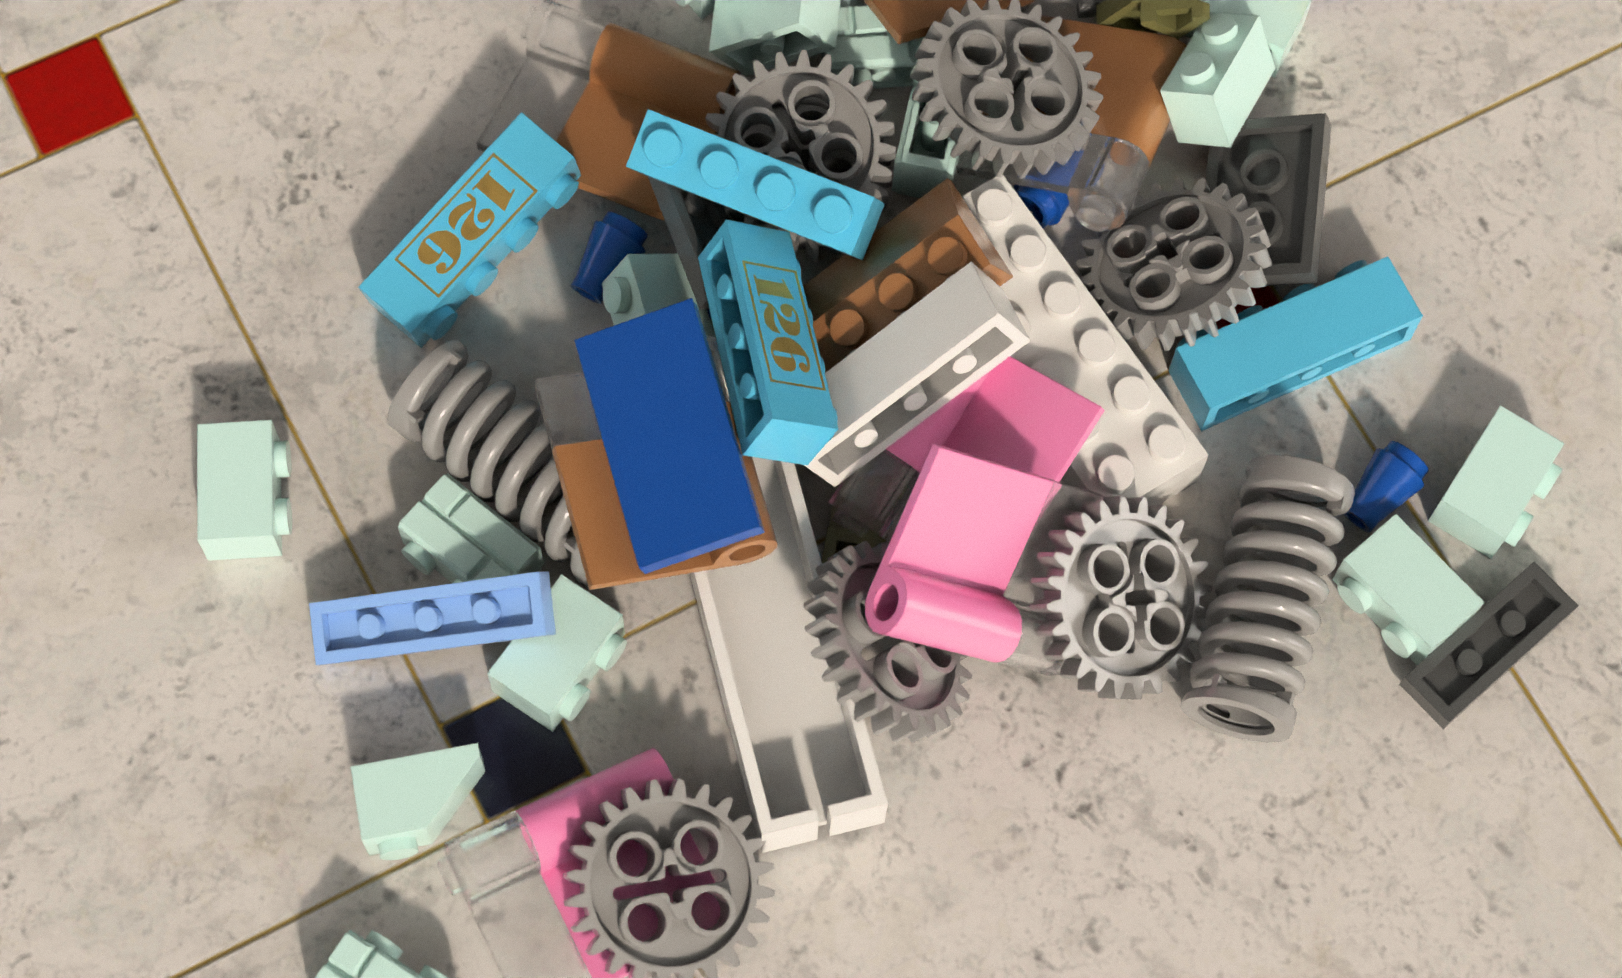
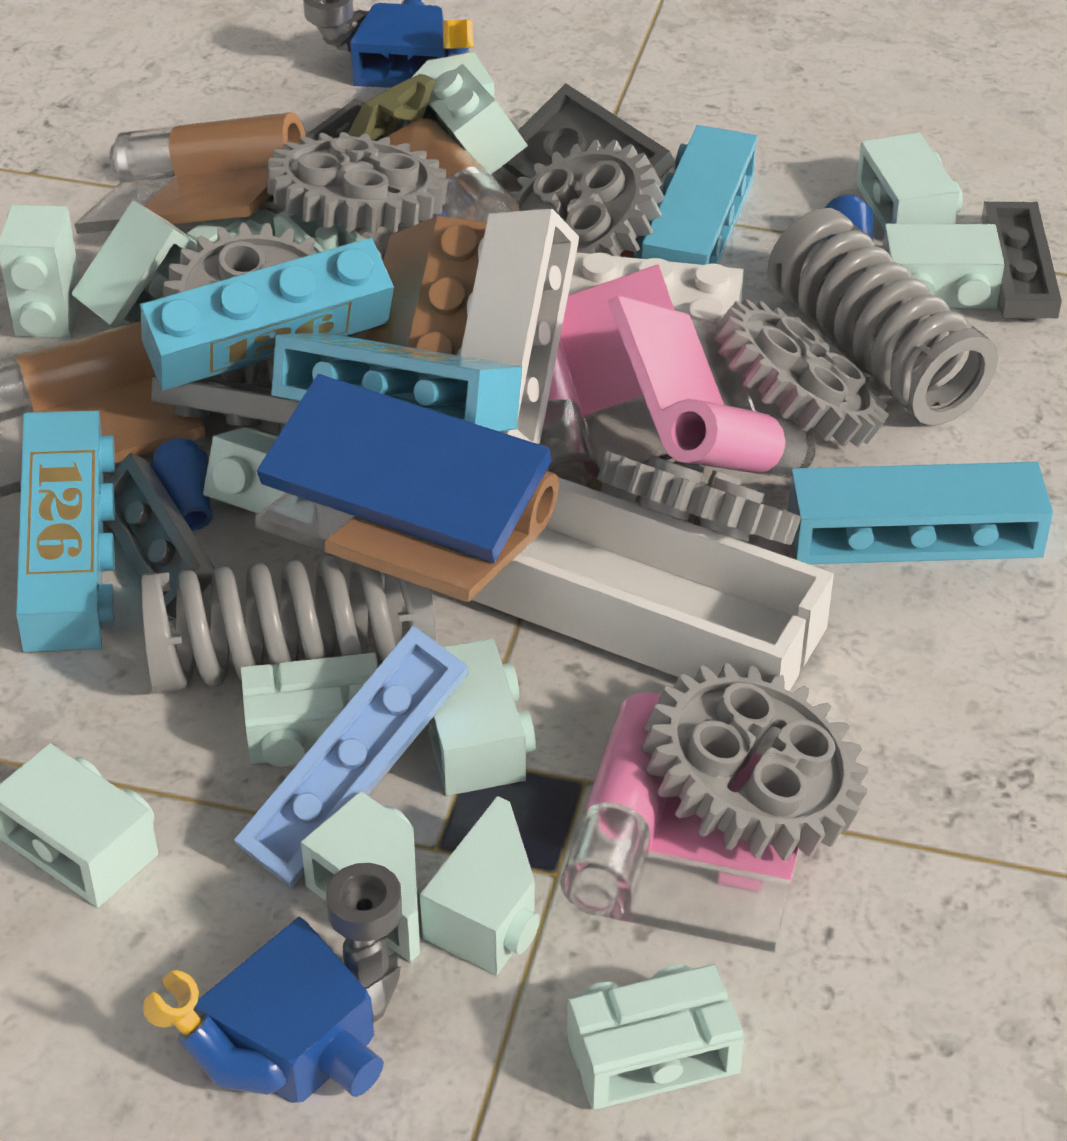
camera: 45 degrees left, 25 degrees down
(216, 762) = (293, 1005): none -> blue torso
(366, 710) = (368, 834): none -> light aqua slope
(536, 289) = (154, 528): none -> dark grey plate
(1065, 798) = (920, 512): none -> medium azure brick

